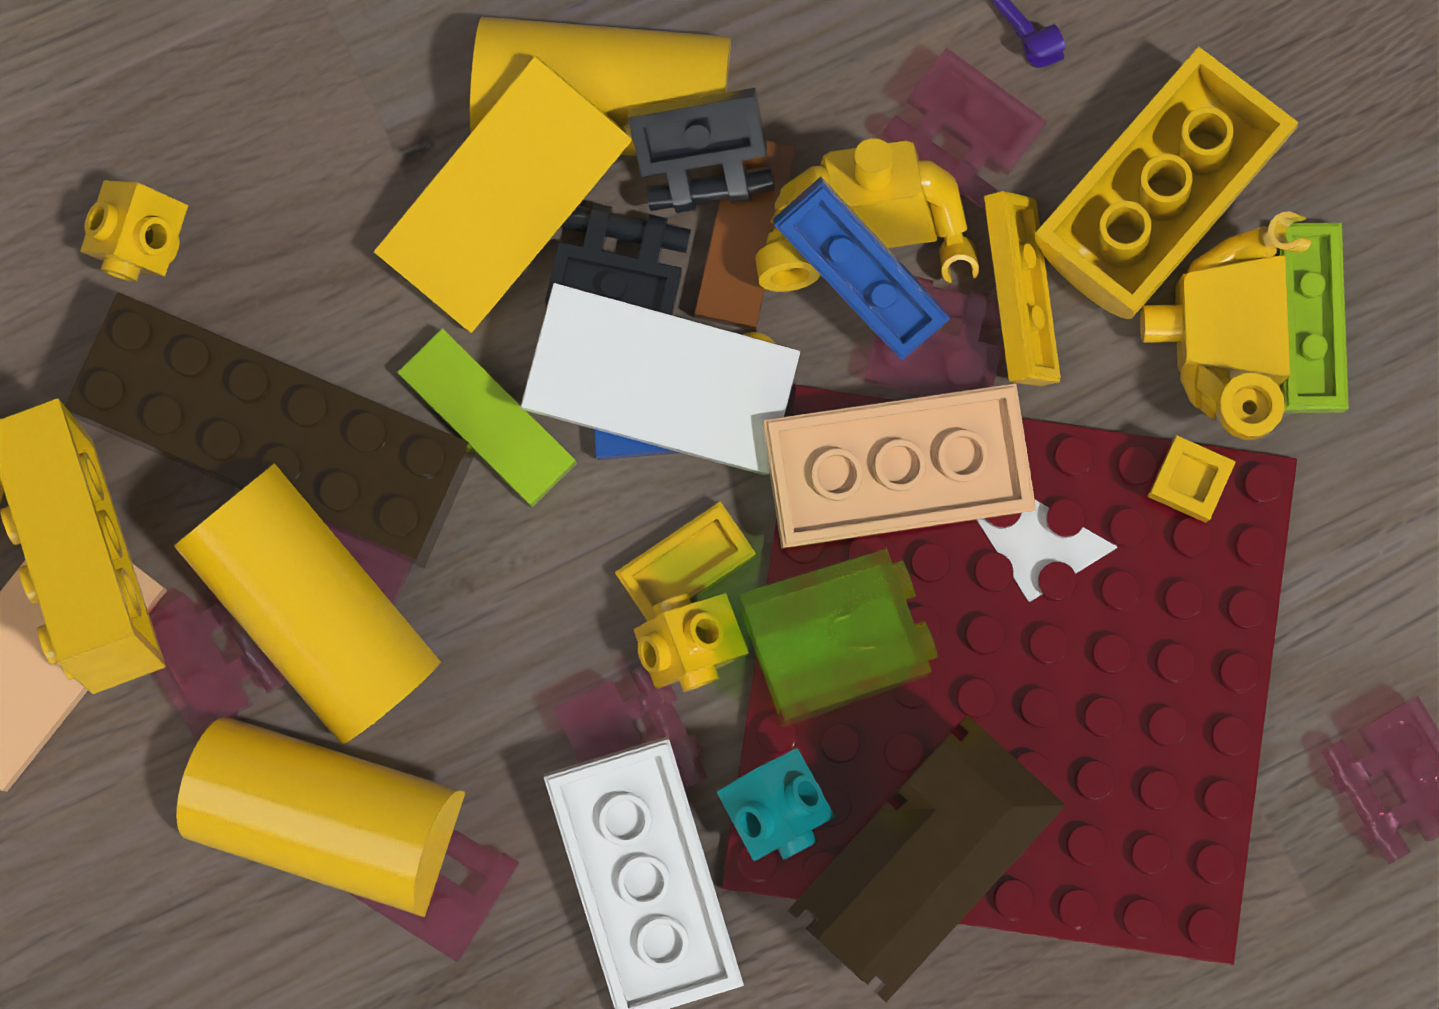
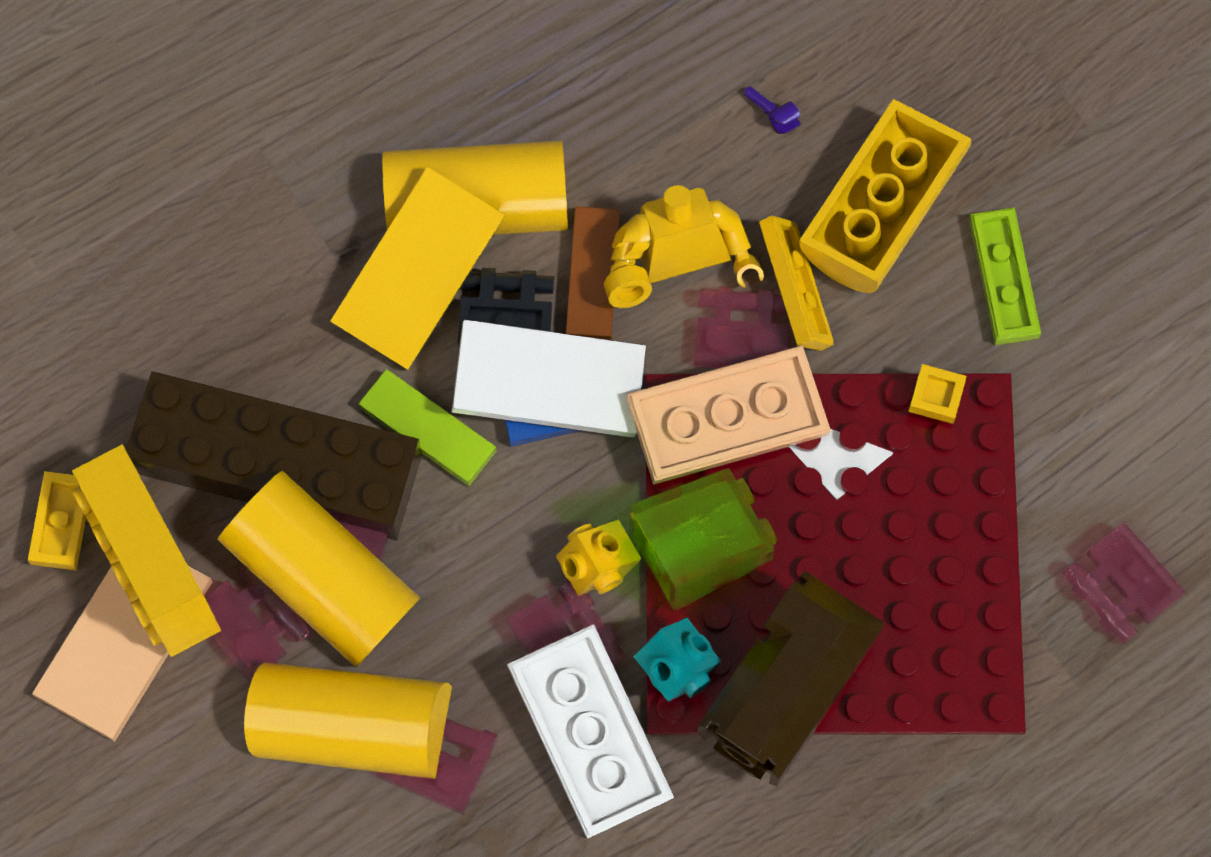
camera: 10 degrees left, 10 degrees down
(133, 230) = (155, 330): yellow brick -> none
(686, 560) = (591, 502): yellow tile -> none
(701, 134) = (552, 205): black plate -> none
(861, 268) = (680, 279): blue tile -> none
(975, 113) = (745, 169): clear pink plate -> none
(1233, 328) = (949, 285): yellow torso -> none

